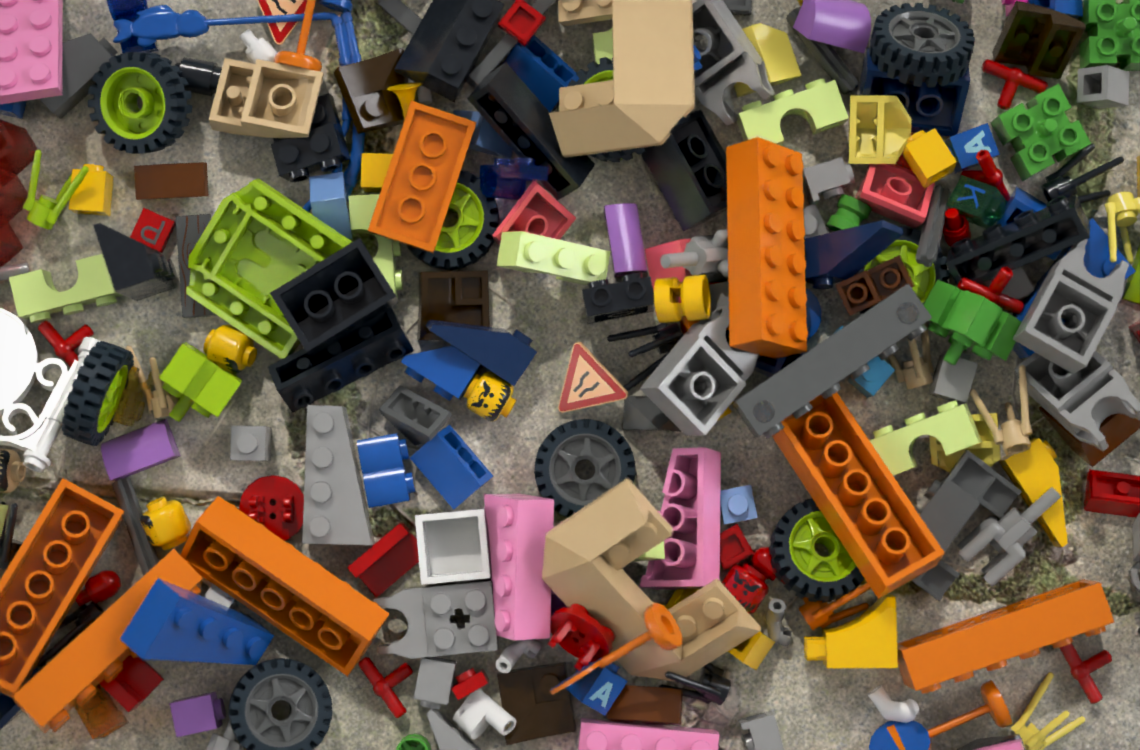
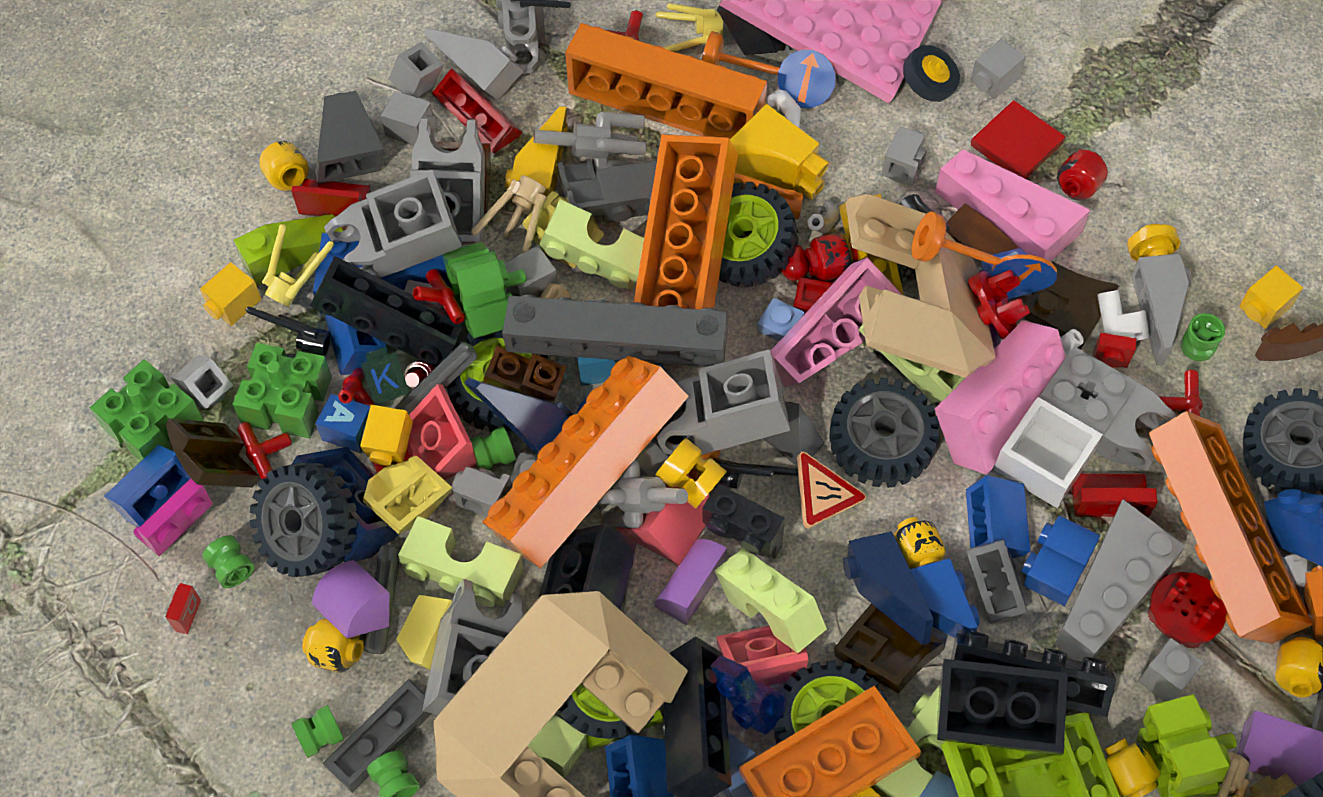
camera: 140 degrees left, 25 degrees down
(435, 681) = (1147, 367): light grey brick -> none

